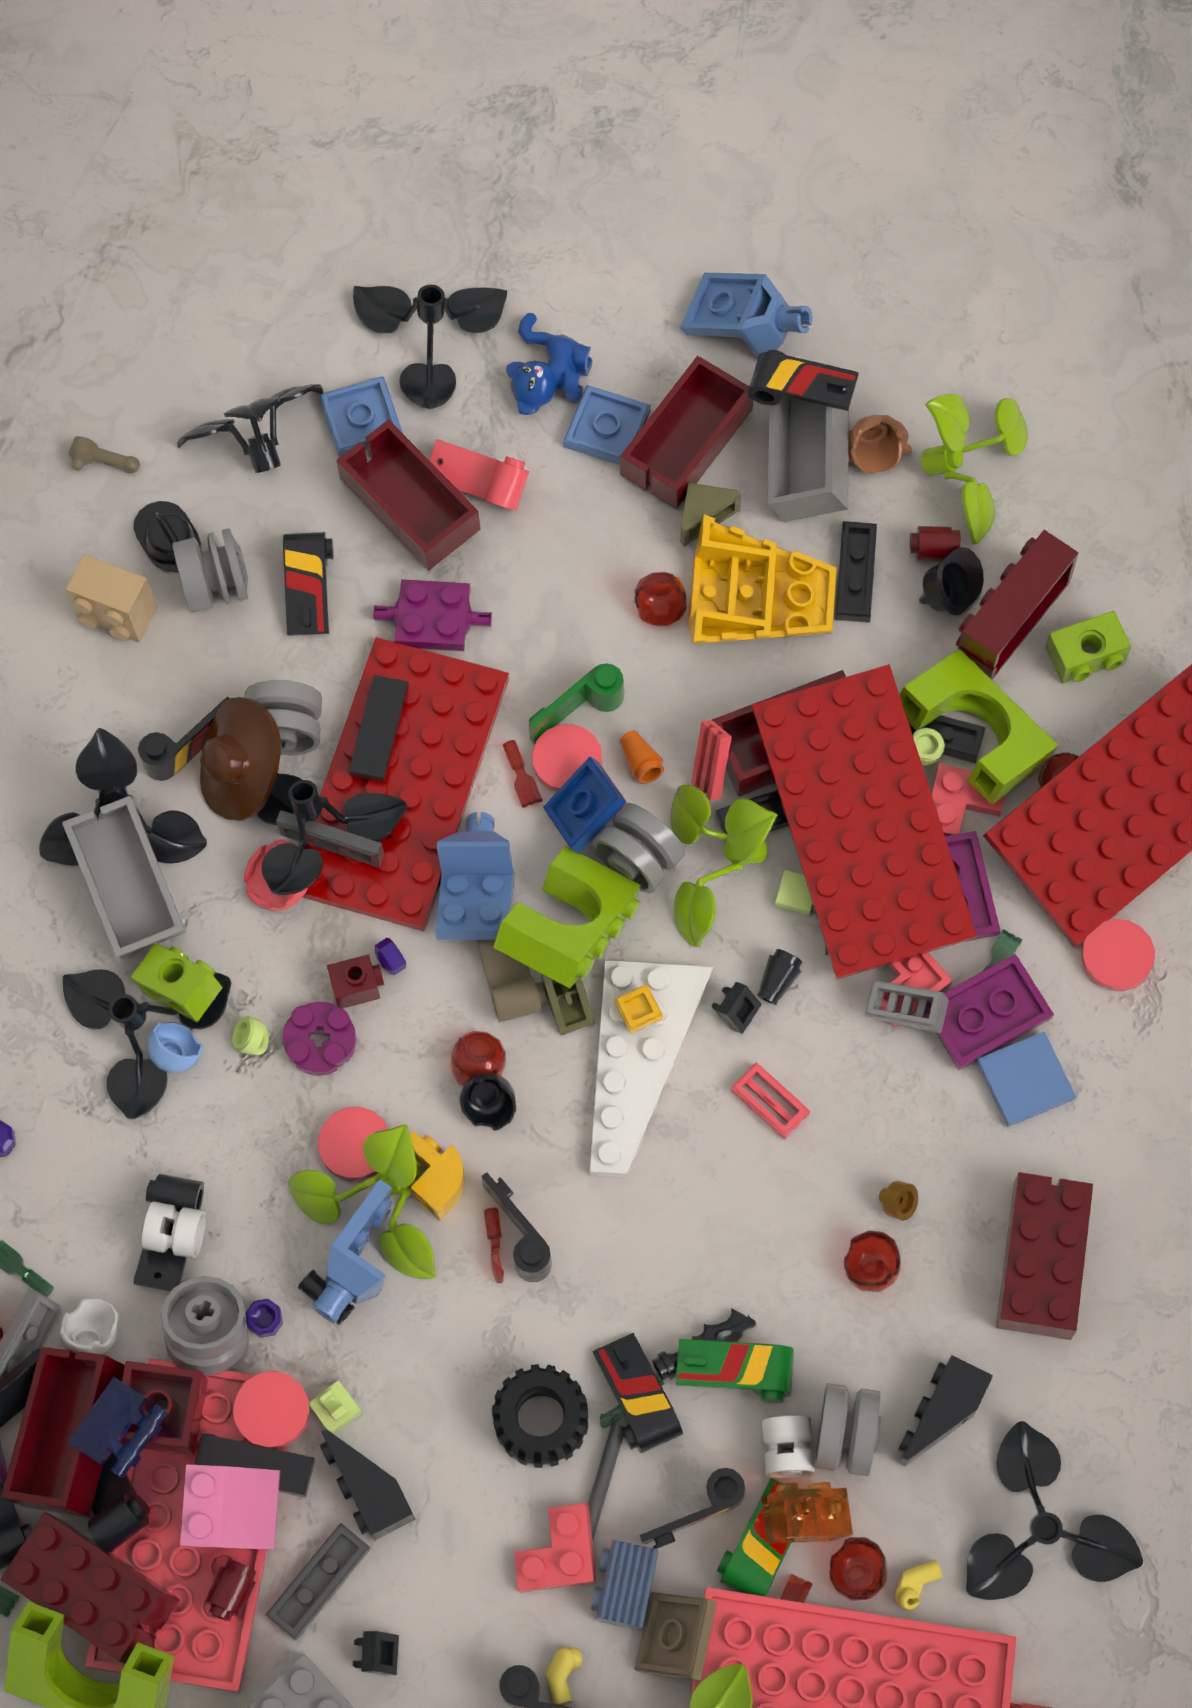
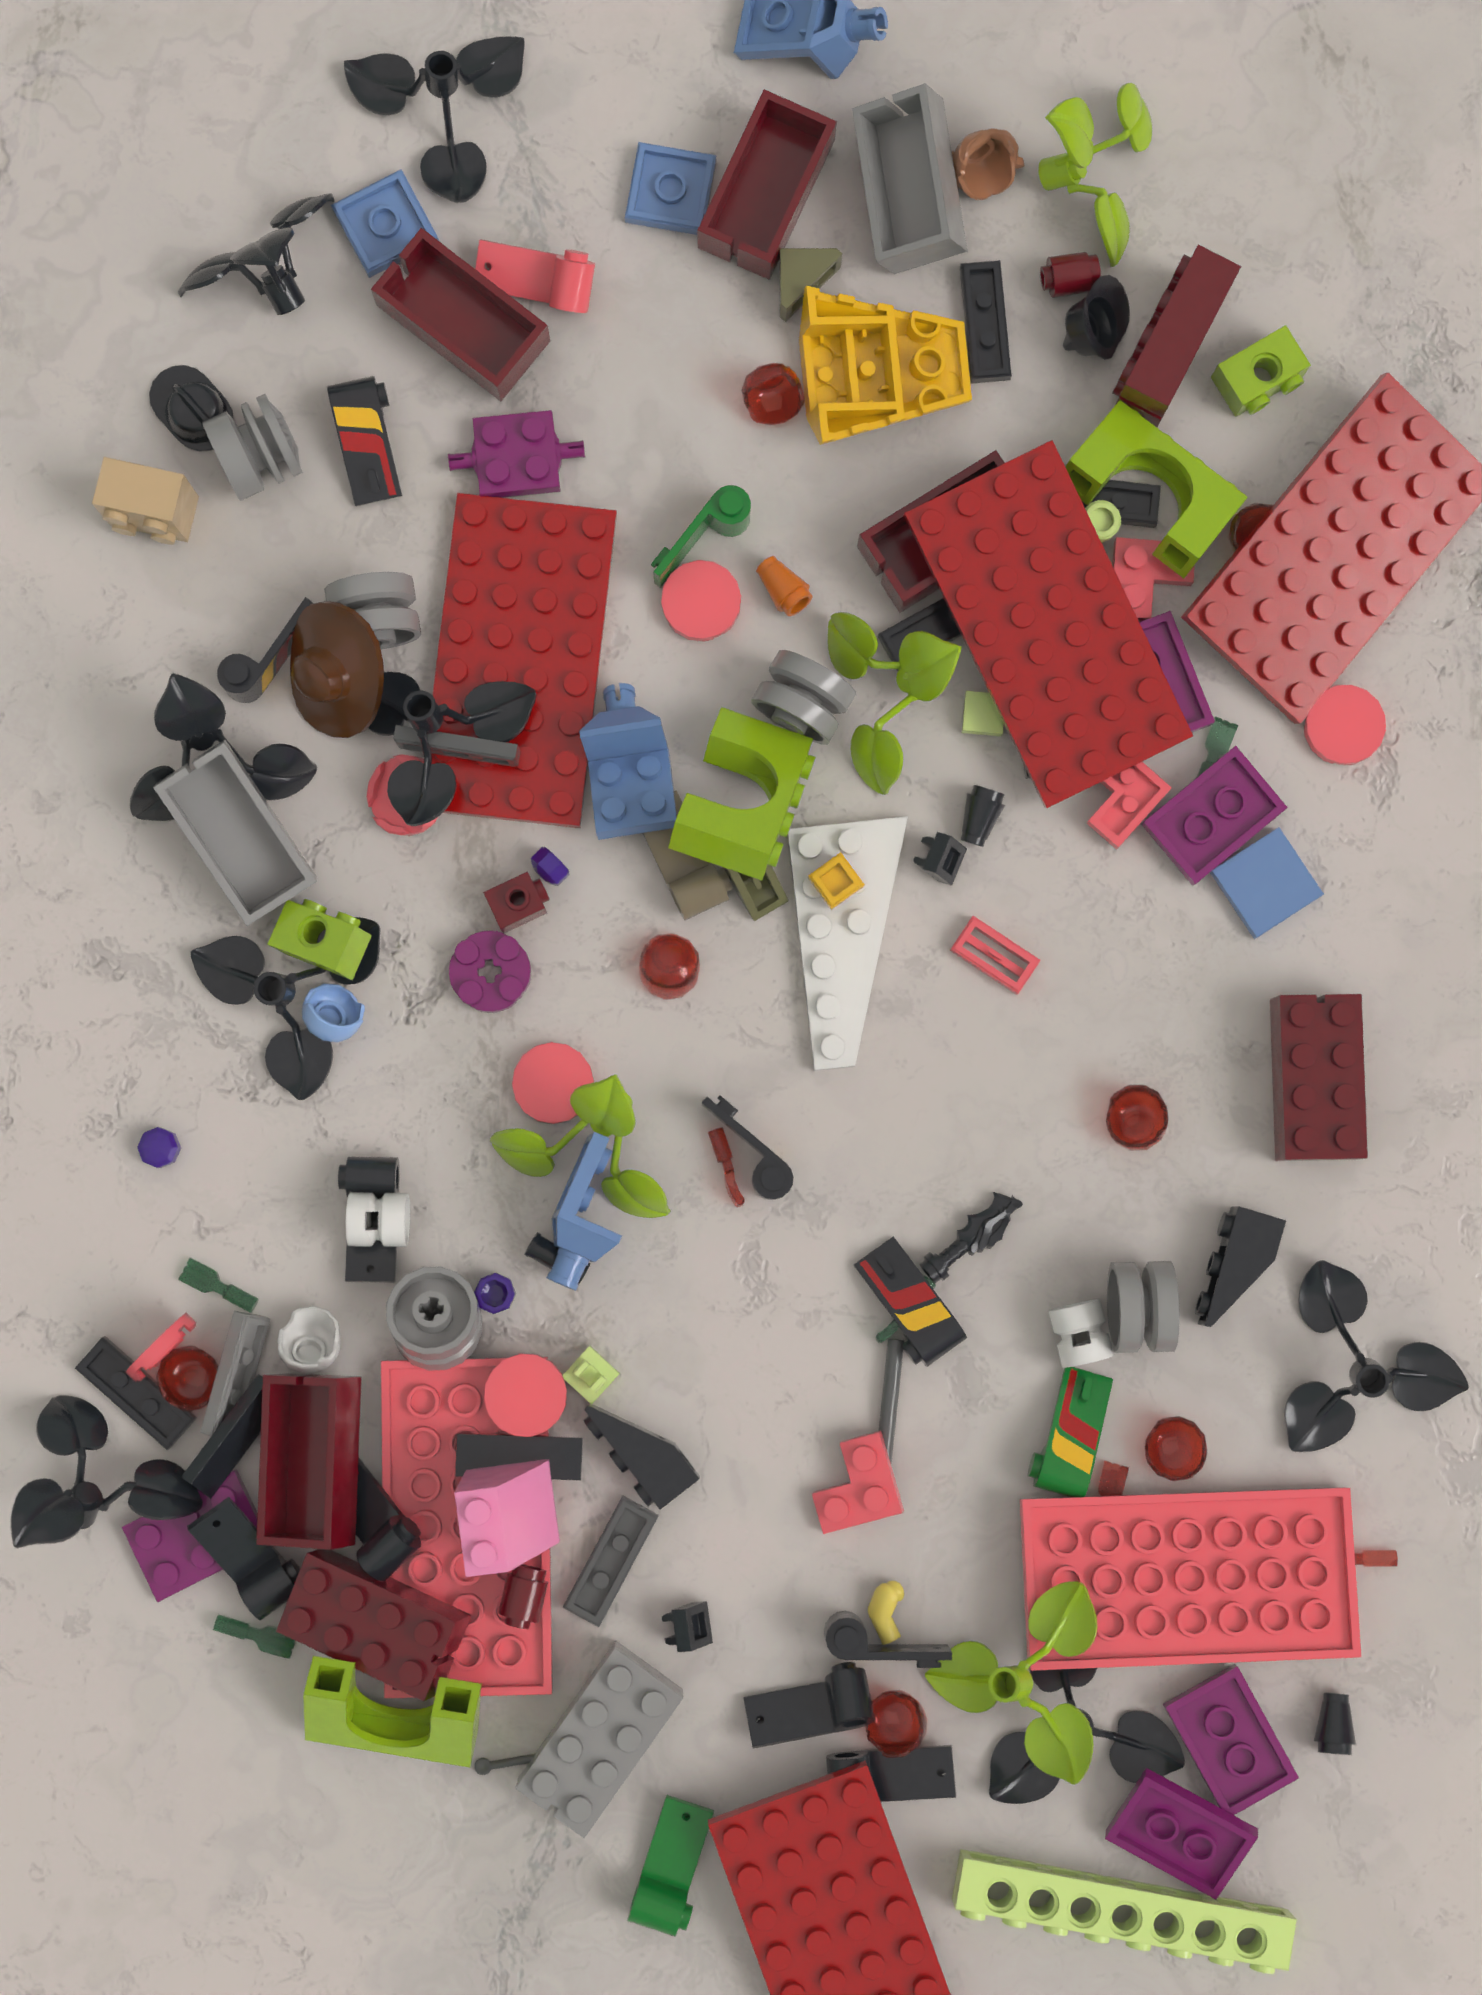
camera: 20 degrees left, 15 degrees up
(84, 451) = (73, 321): dark tan piece -> none
(110, 1420) = (357, 1451): clear blue plate -> none
(177, 1392) = (406, 1420): dark red brick -> none
(250, 1036) = (413, 984): yellowish green tile -> none
(378, 728) = (484, 604): black tile -> none
(444, 1178) = (660, 1106): yellow brick -> none
(488, 1100) = (691, 1012): black hair -> none
(524, 784) = (659, 638): clear red piece -> none
(531, 1384) = (850, 1348): black tyre -> none
(536, 381) = (581, 148): blue animal -> none
(584, 804) = (734, 656): blue tile -> none
(626, 1584) = (936, 1508): sand blue brick -> none
(675, 1636) = (999, 1554): dark tan tile -> none
(711, 759) = (863, 579): coral tile -> none
(725, 1492) = (1025, 1396): black door -> none
(737, 1365) = (1011, 1258): green door -> none
(800, 379) = (891, 103): black door -> none
(806, 1514) = (1114, 1404): clear orange brick -> none
(899, 1200) = (1153, 1043): pearl gold tile -> none
(912, 1582) = (1231, 1449): light yellow arm -> none
(937, 1013) = (1163, 835): light grey slope -> none

